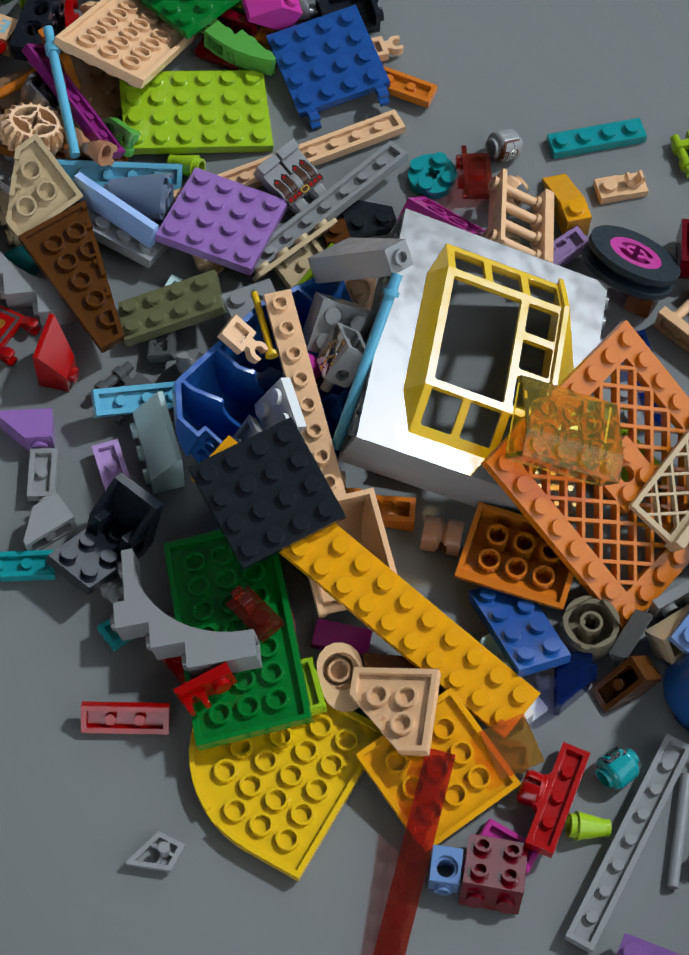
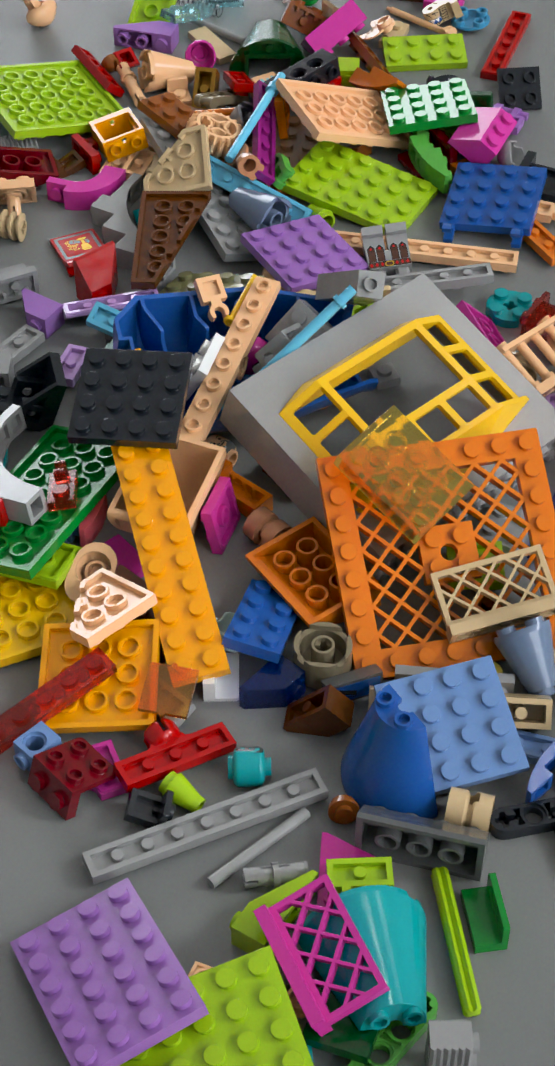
camera: 40 degrees right, 15 degrees down
(90, 378) = (118, 301): none -> lavender slope
(116, 211) = (227, 208): light blue tile -> none
(399, 556) = (220, 515): none -> dark pink plate
(579, 858) = (149, 809): none -> black bracket

